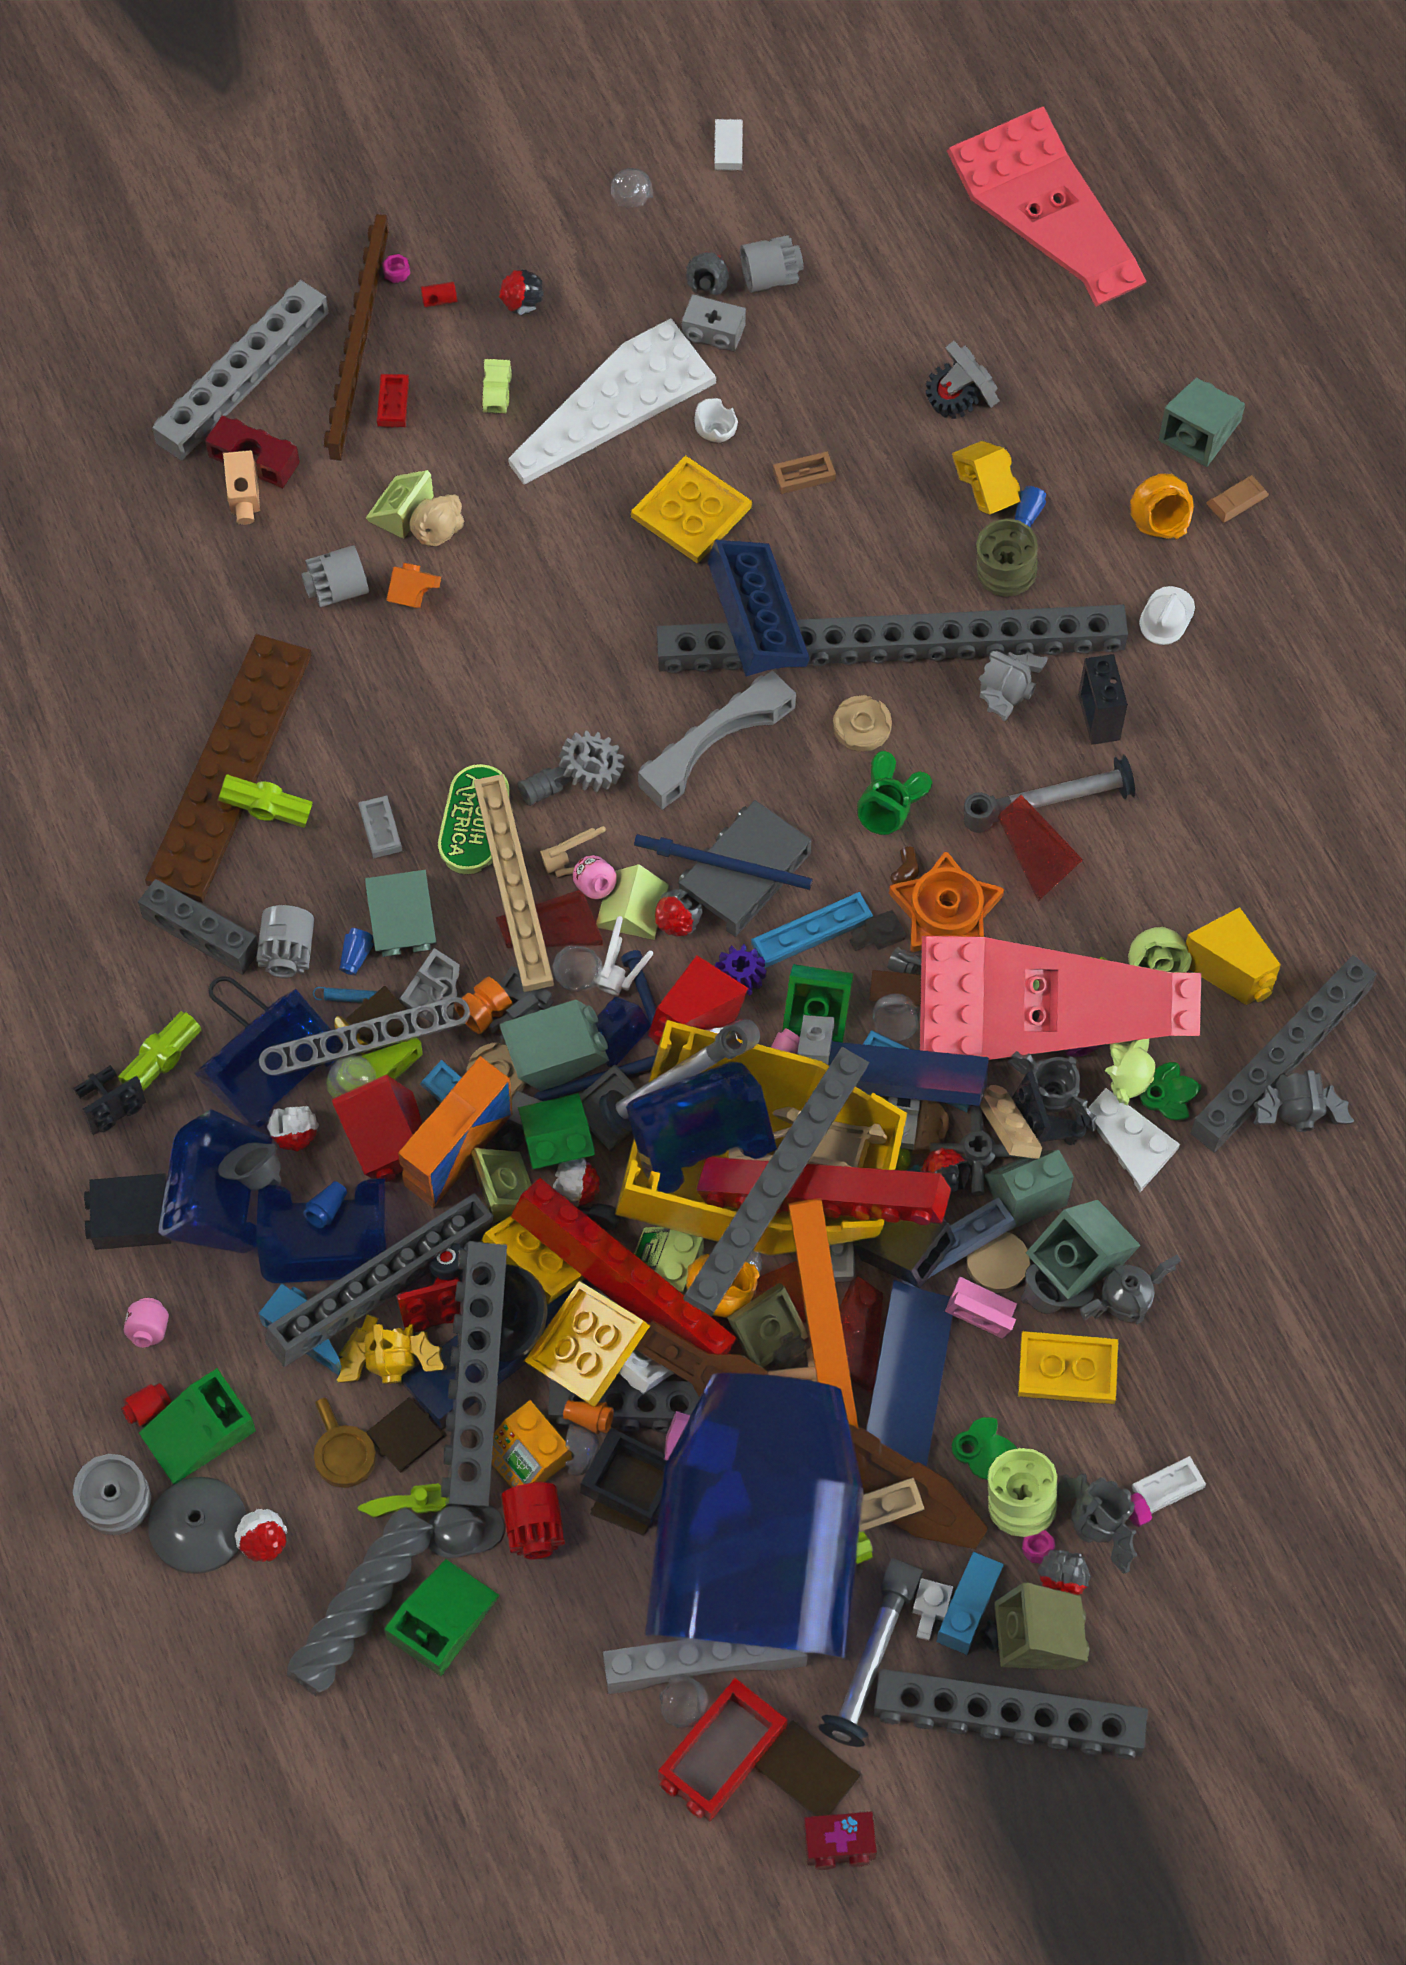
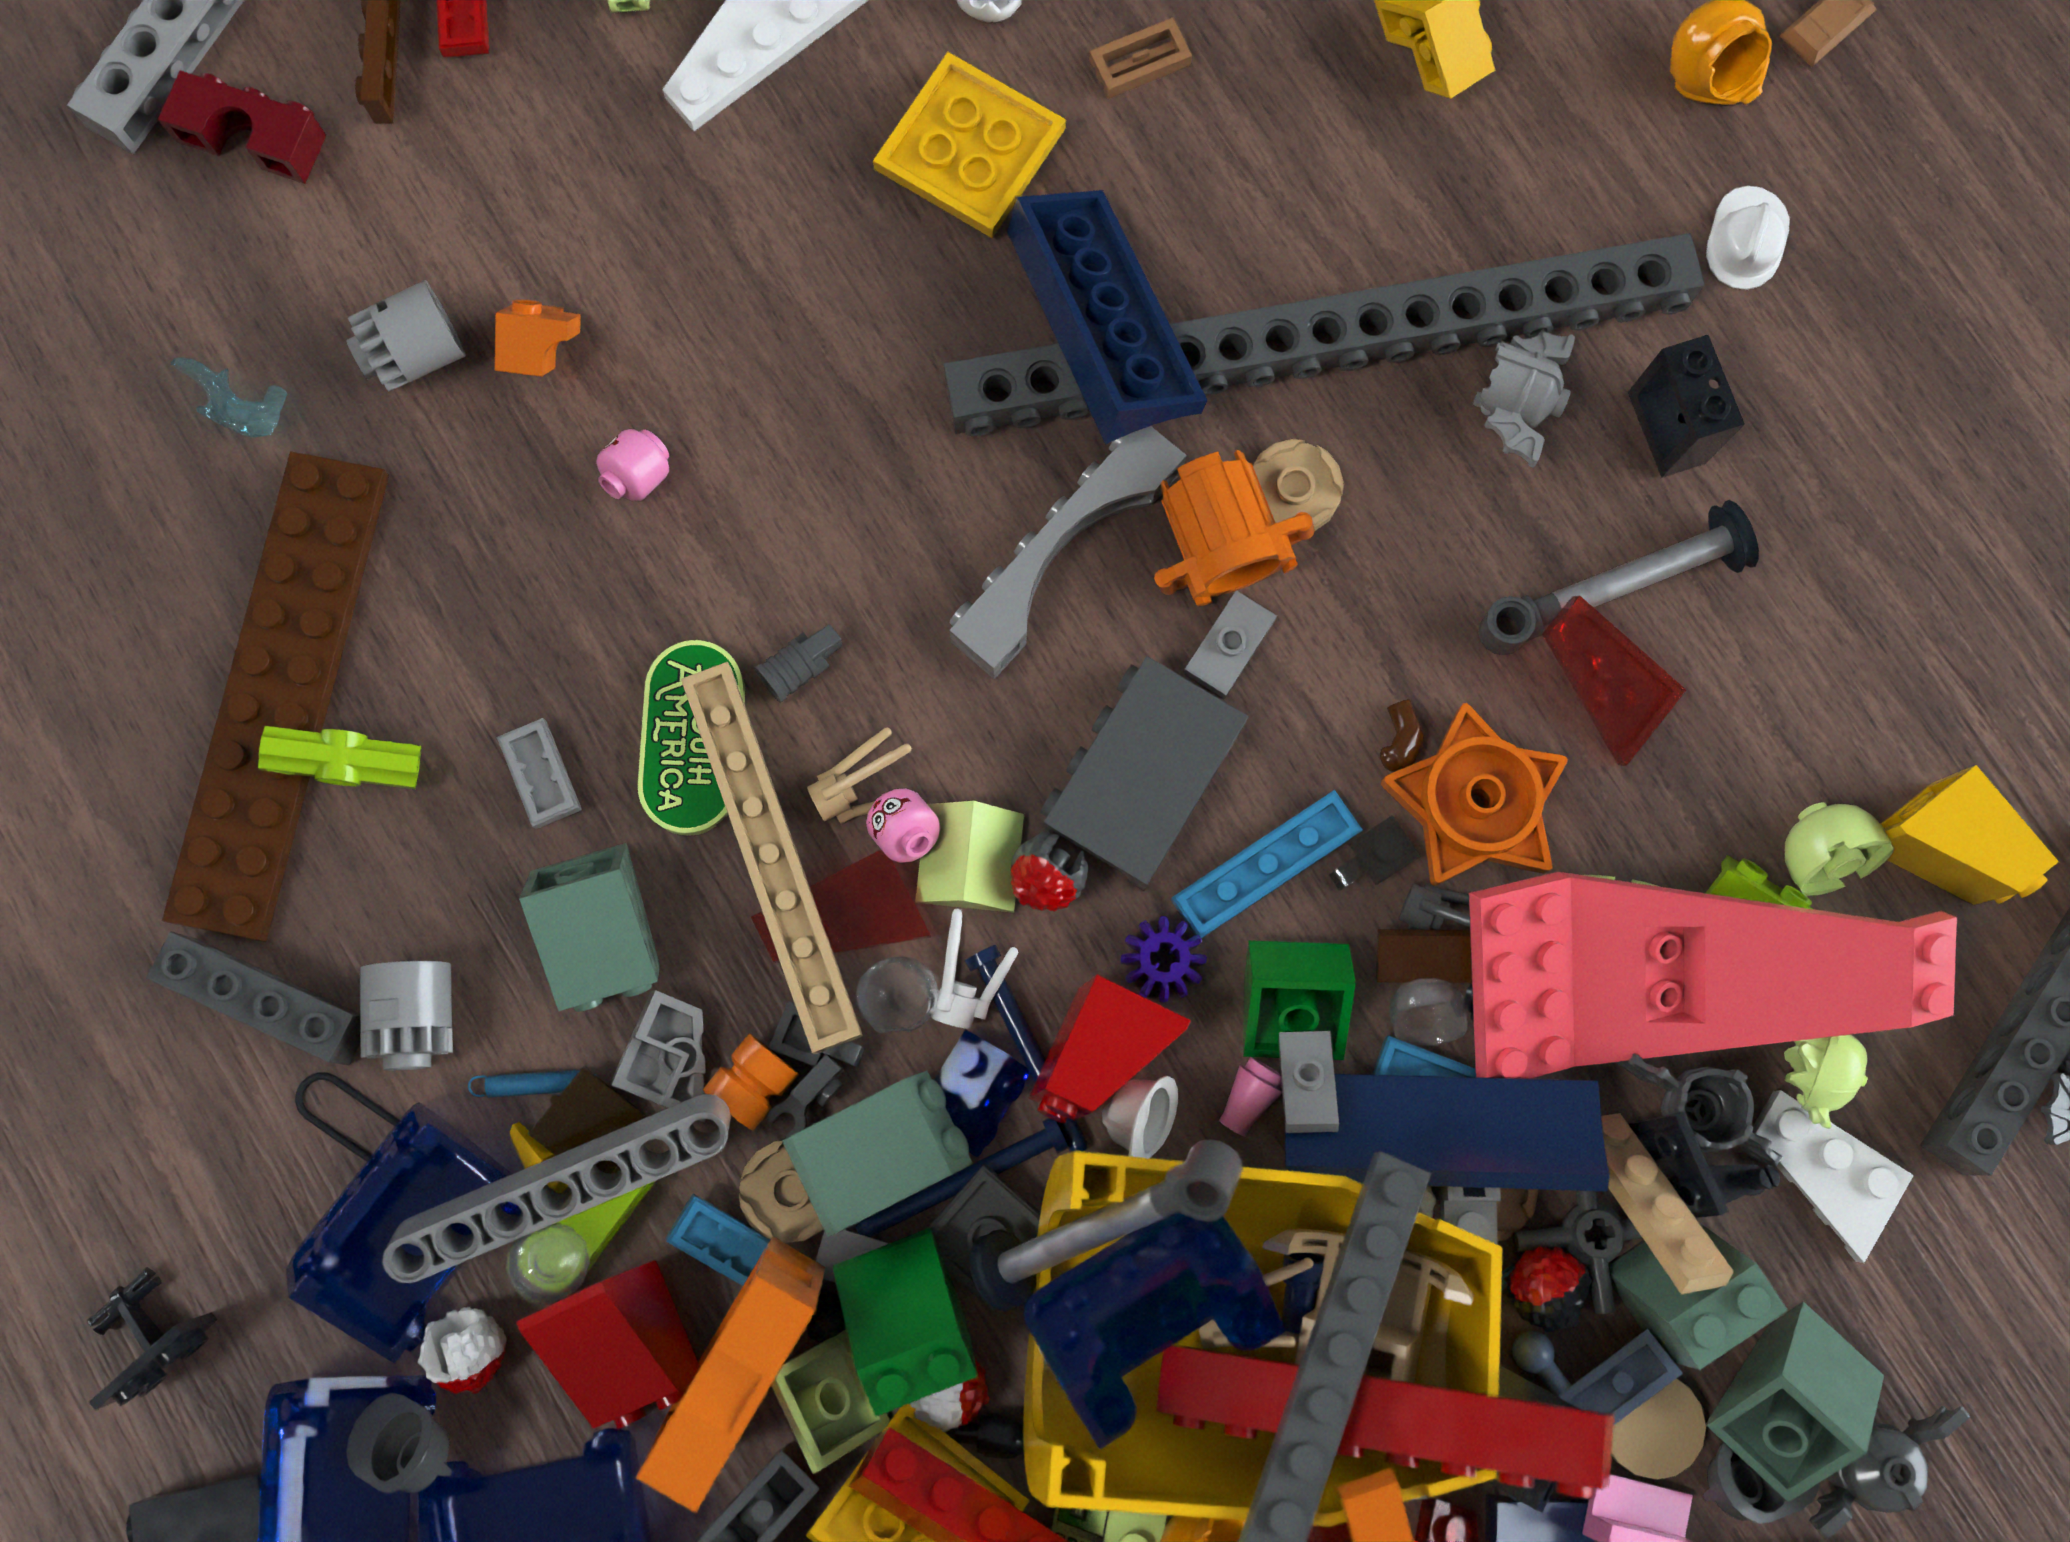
camera: 10 degrees left, 15 degrees up
(162, 1050) = (224, 1238): lime piece -> none
(231, 611) = (228, 410): none -> clear light blue piece
(242, 485) = (229, 191): light nougat torso -> none
(325, 1205) = (536, 1484): blue cone -> none
(355, 950) = (526, 1006): blue cone -> none
(399, 502) = (501, 189): yellowish green slope -> none
(439, 515) = (559, 215): tan hair -> none
(461, 663) = (633, 464): none -> bright pink head
(591, 761) = (874, 597): light grey gear -> none
(666, 847) = (1013, 764): dark blue bar -> none
(809, 804) = (1230, 644): none -> light grey plate
(813, 737) = (1225, 529): none -> orange container
(887, 800) = (1359, 629): green piece -> none
(1007, 557) = (1491, 171): olive wheel -> none
(1031, 505) = (1504, 85): blue cone -> none
(1174, 1092) = (1890, 1084): green plate -> none

